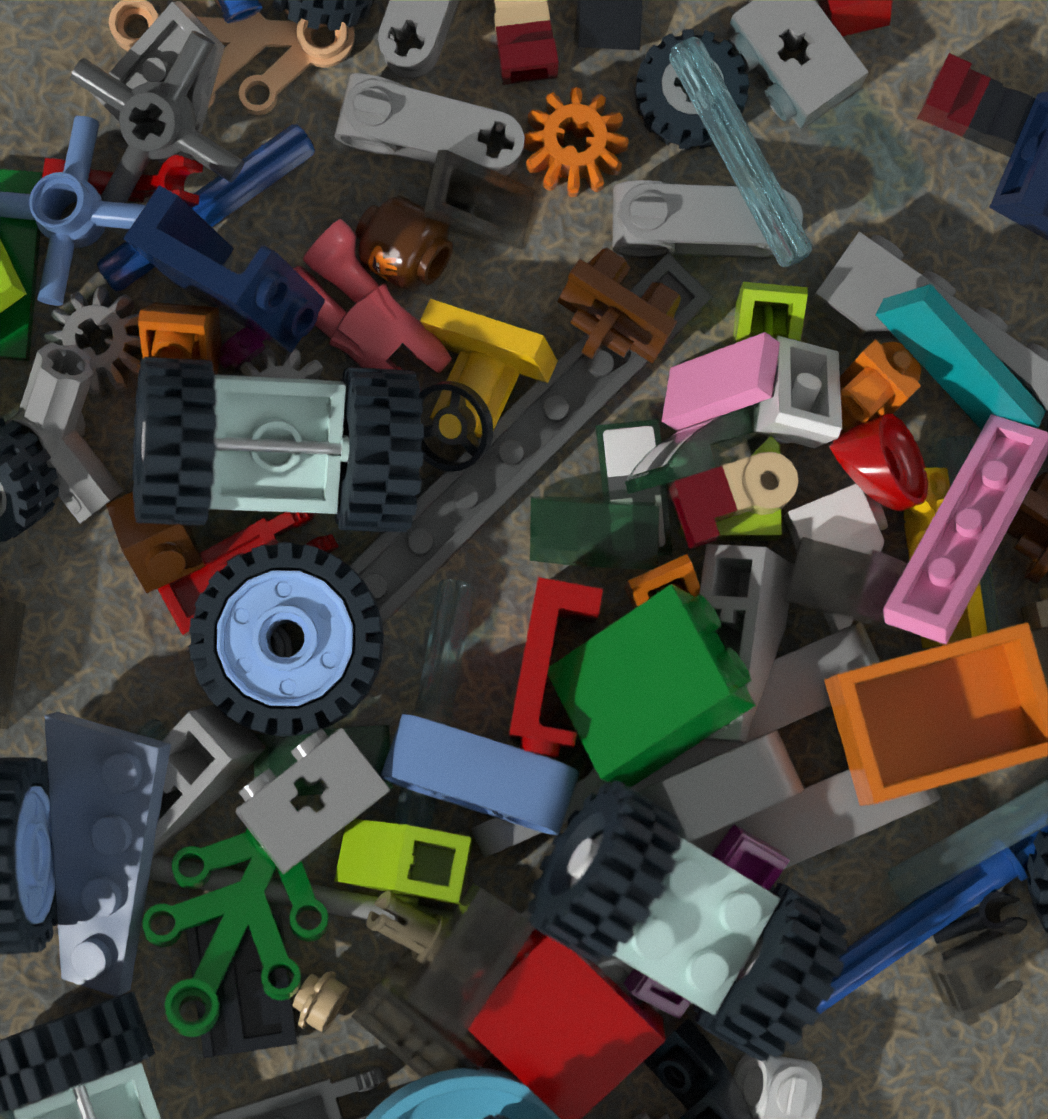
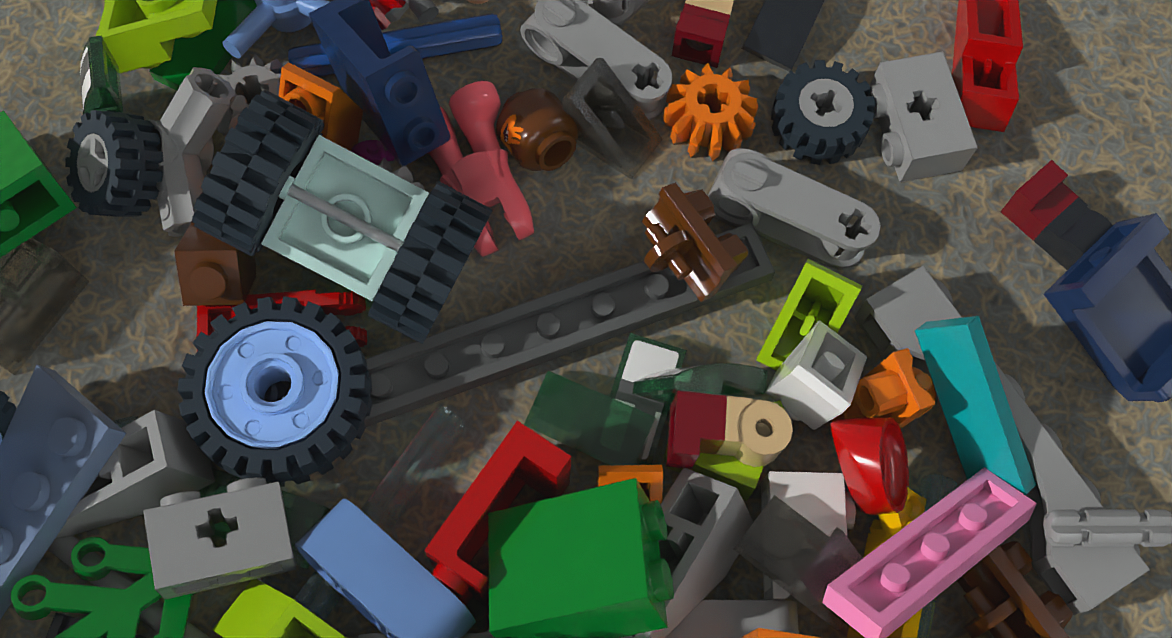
camera: 20 degrees right, 15 degrees down
(481, 378) = (567, 242): yellow piece -> none
(721, 382) = (756, 336): bright pink tile -> none
(740, 152) = (846, 164): clear light blue axle -> none

